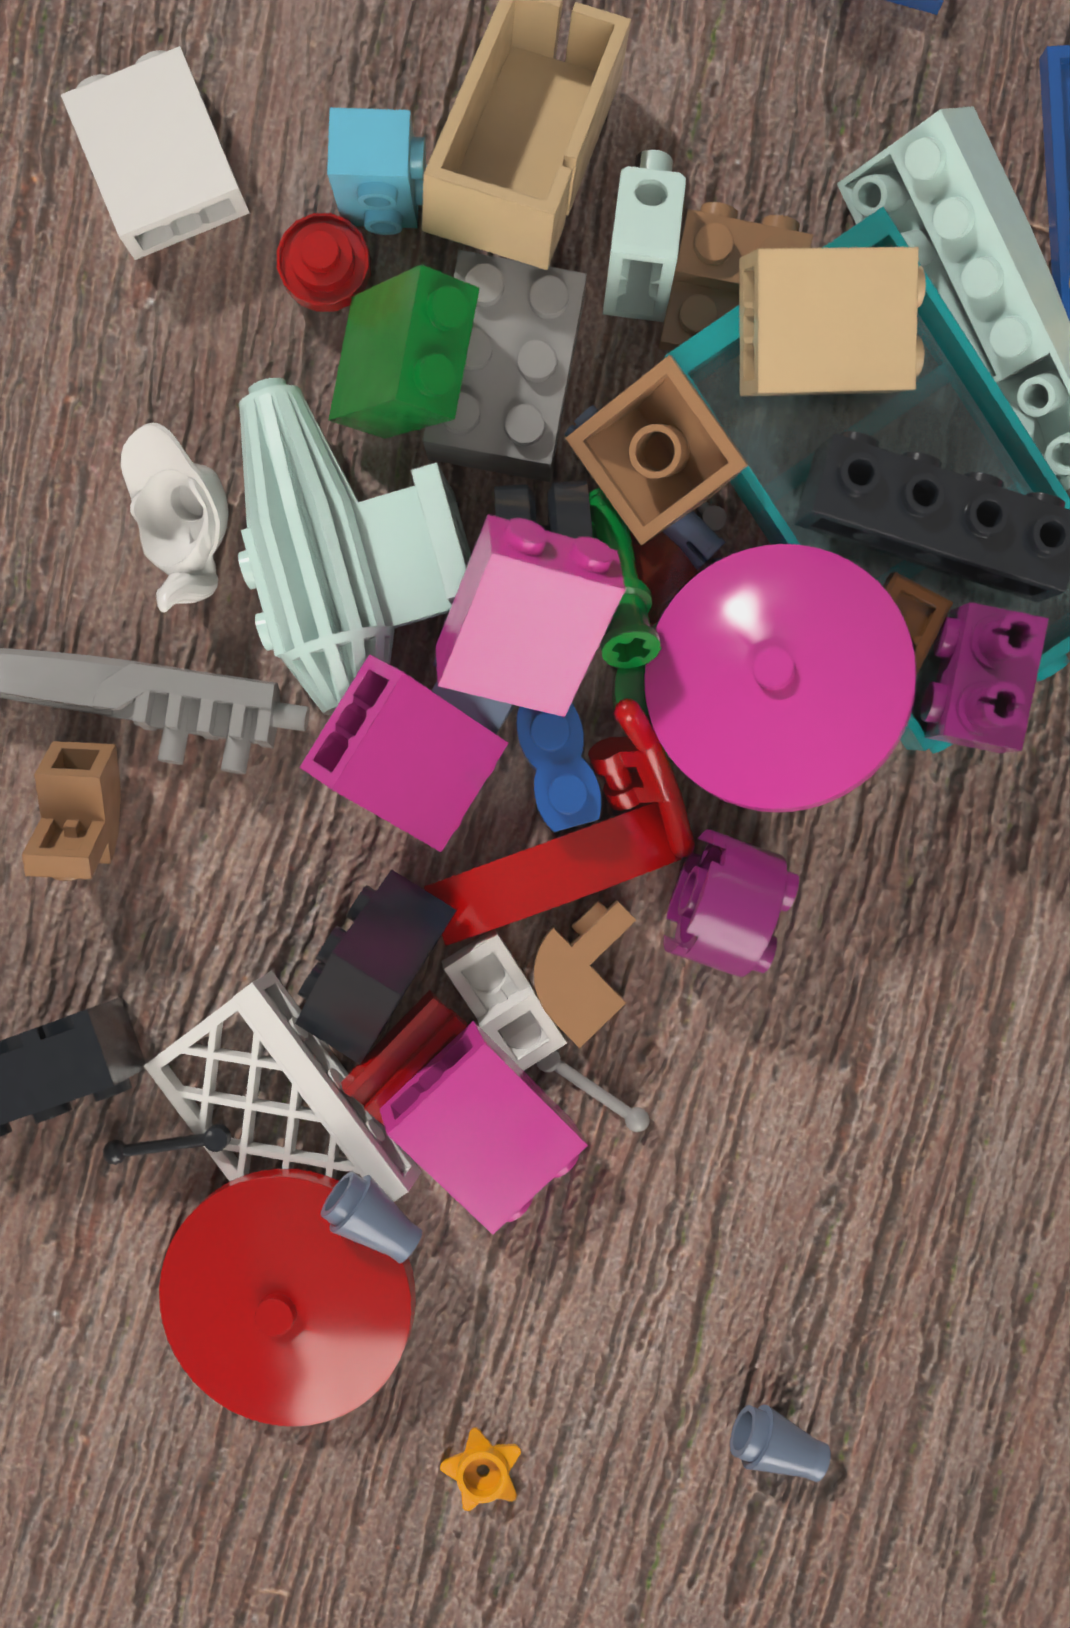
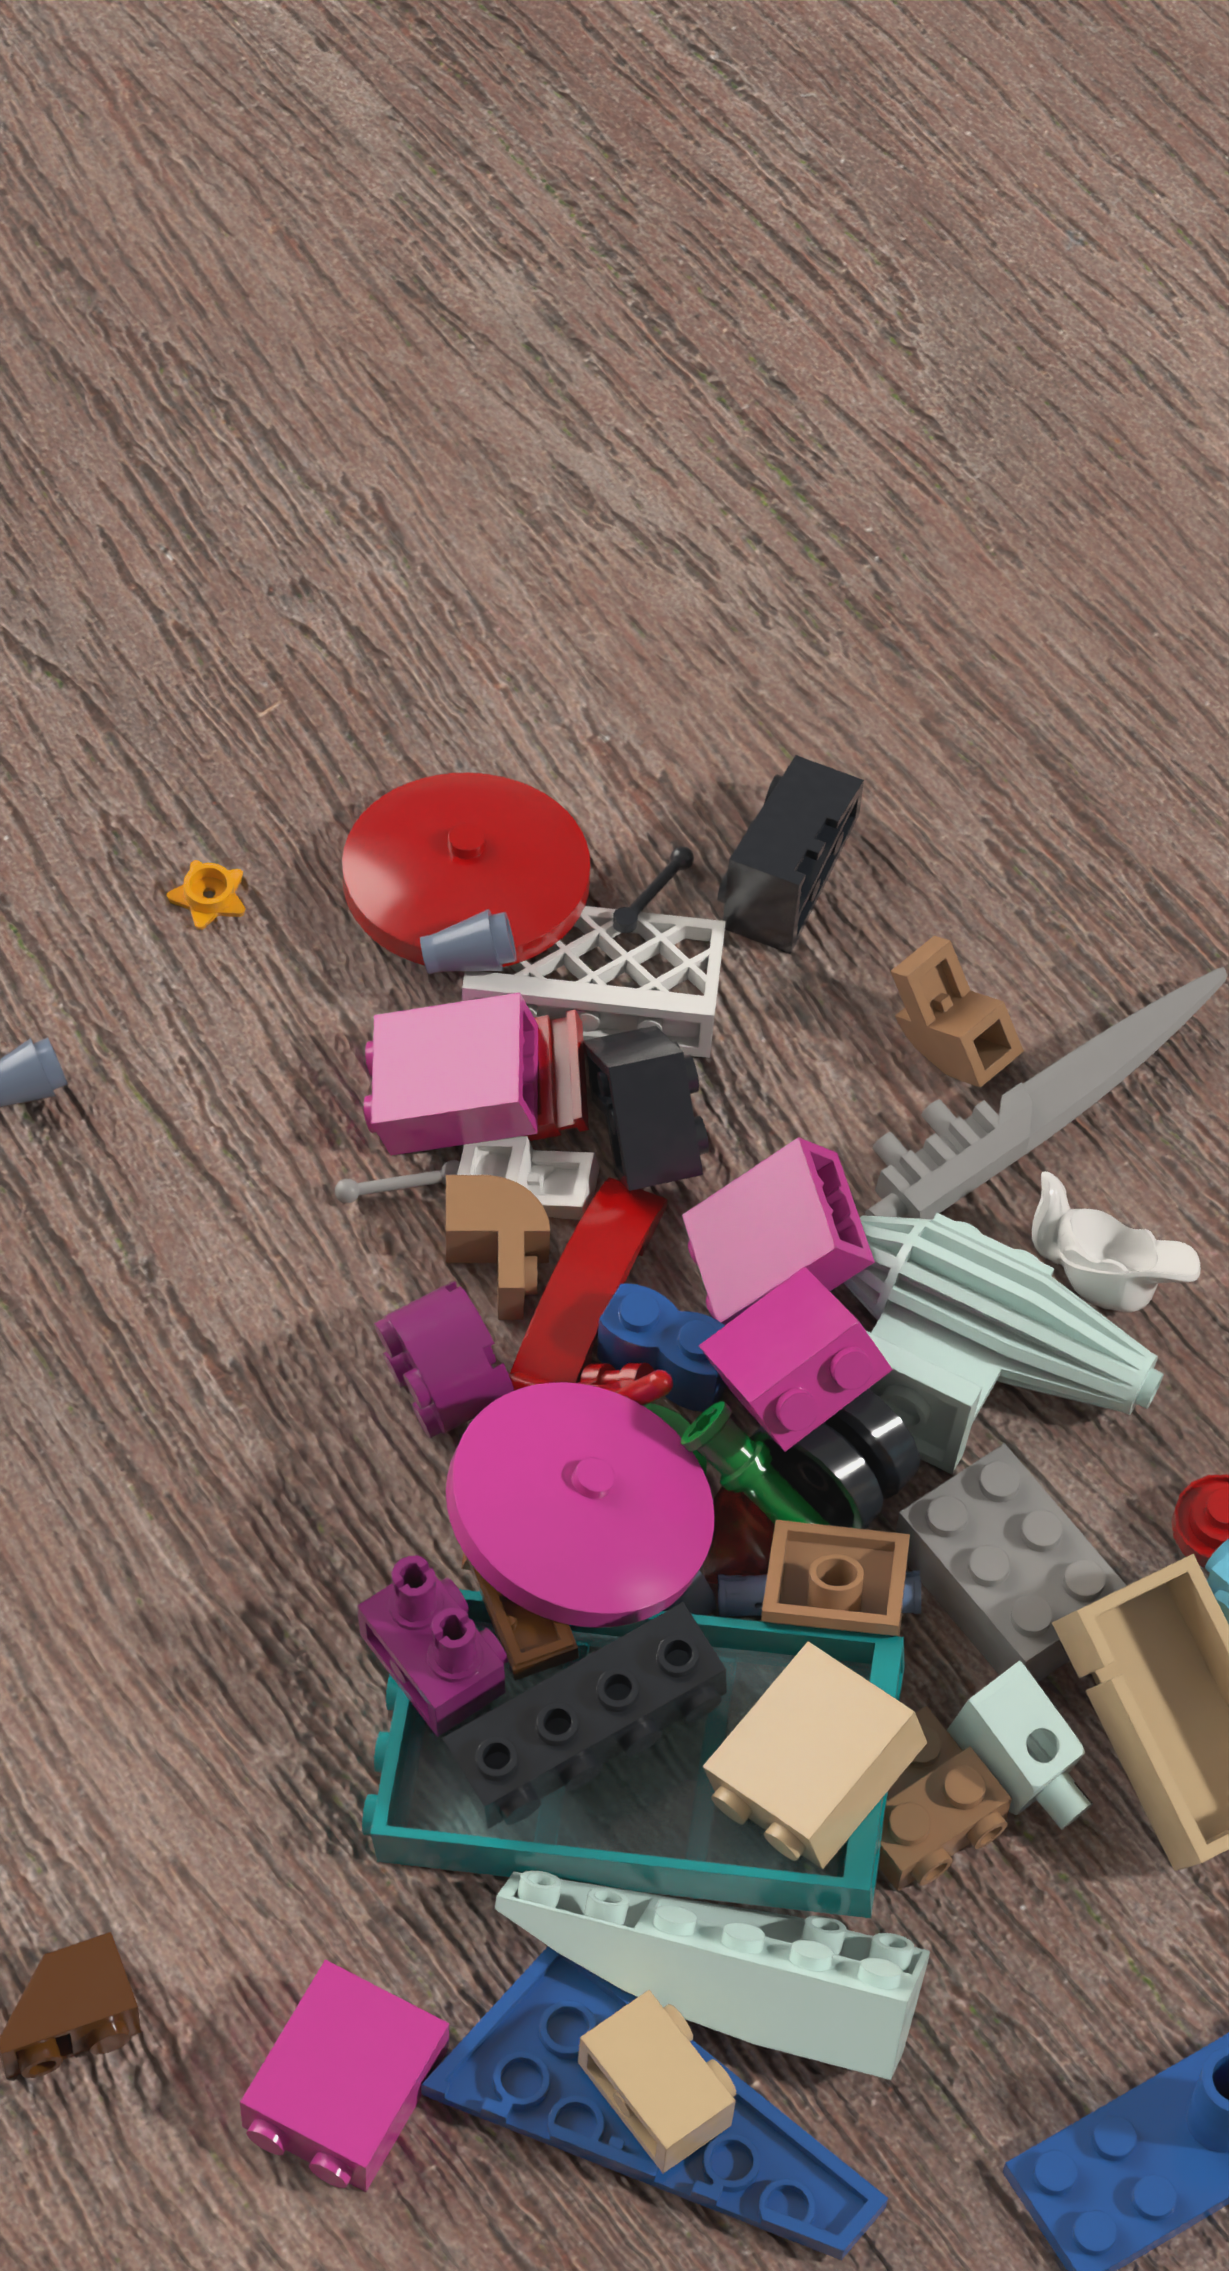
camera: 130 degrees right, 30 degrees down
(404, 353) = (1082, 1479): green brick -> none

